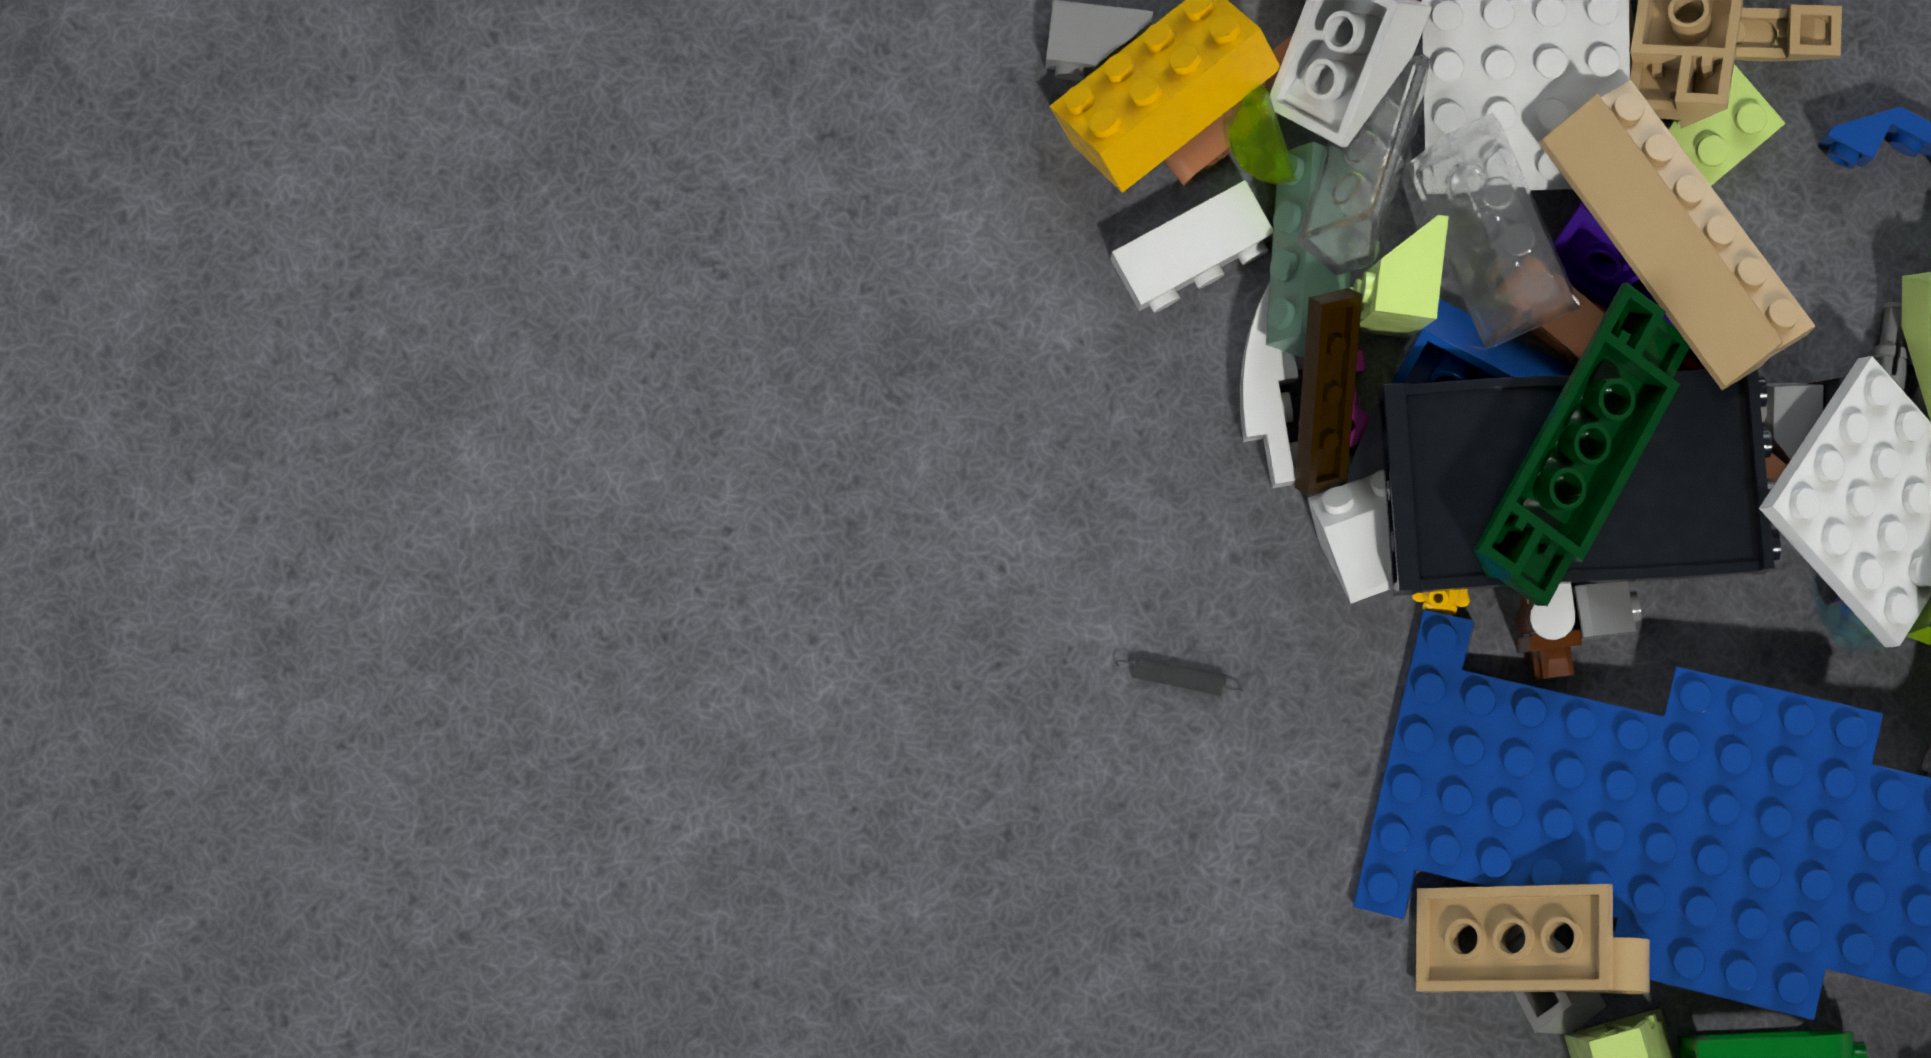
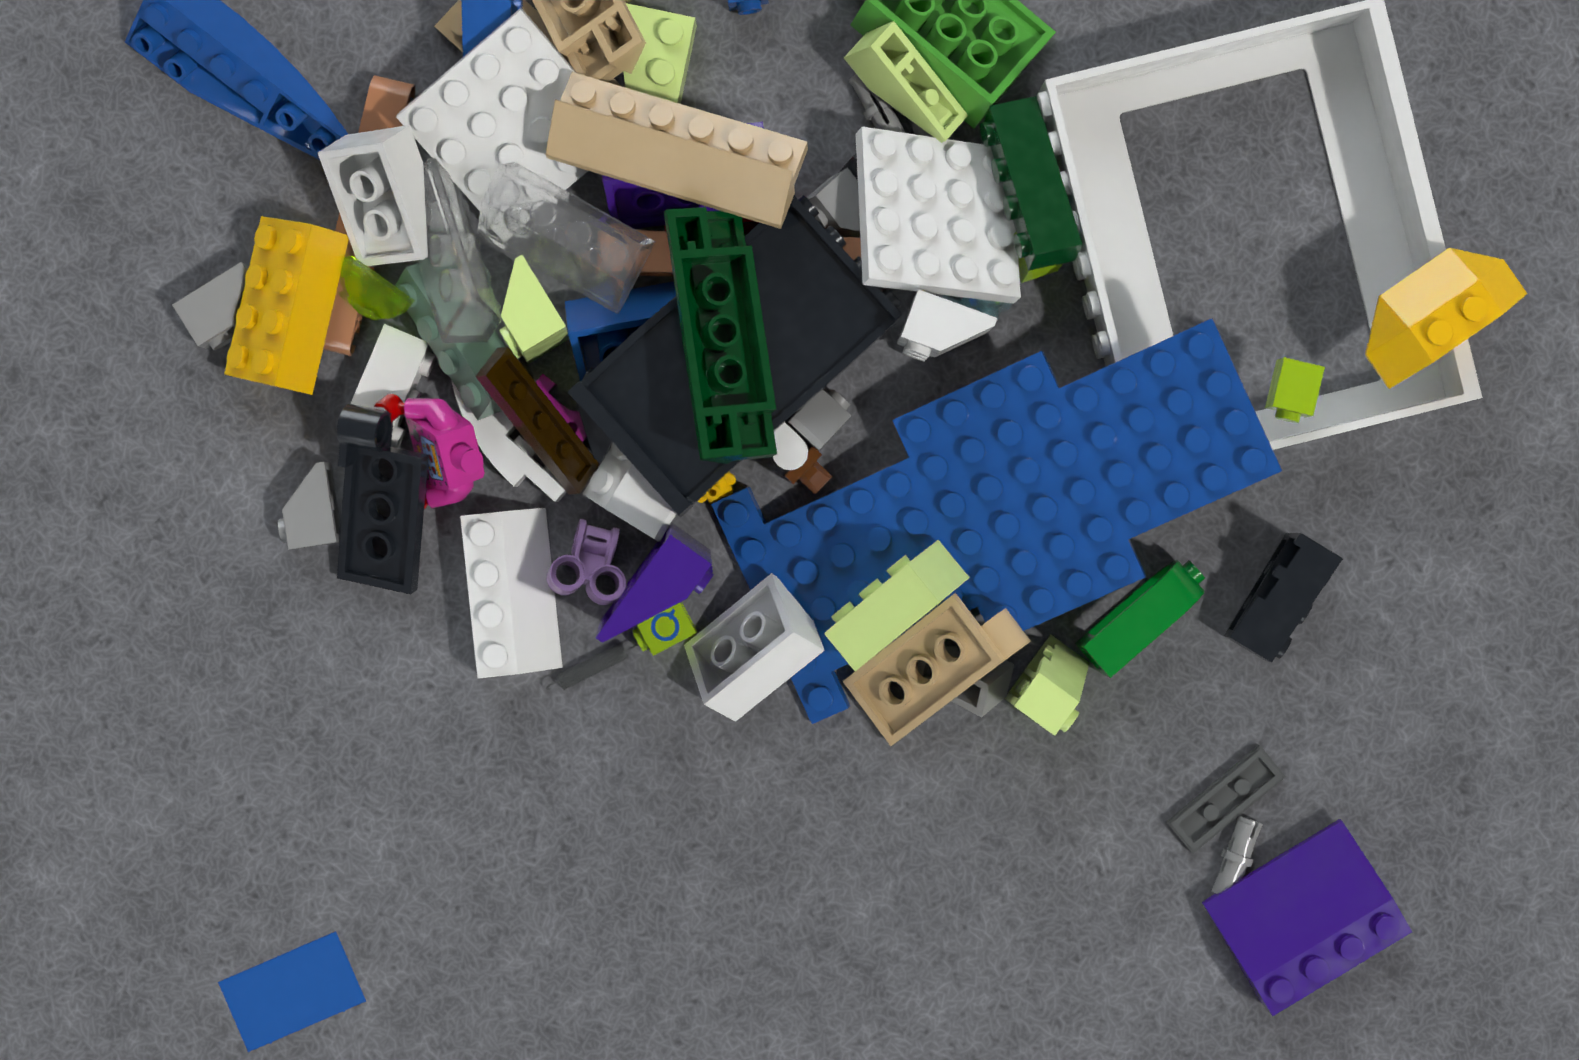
camera: 40 degrees left, 5 degrees up
(625, 761) = (292, 991): none -> blue window
(1024, 307) = (312, 511): none -> light grey slope
(1138, 277) = (364, 440): none -> black hinge
(1159, 539) = (509, 592): none -> white slope
(1208, 346) = (448, 441): none -> dark pink torso
(1261, 568) = (591, 557): none -> lavender piece
(1283, 693) = (664, 629): none -> lime brick
(1342, 638) = (661, 581): none -> dark purple slope
(1357, 783) = (752, 649): none -> white slope
(1539, 848) = (895, 605): none -> yellowish green wedge
(1798, 612) = (939, 326): none -> white slope

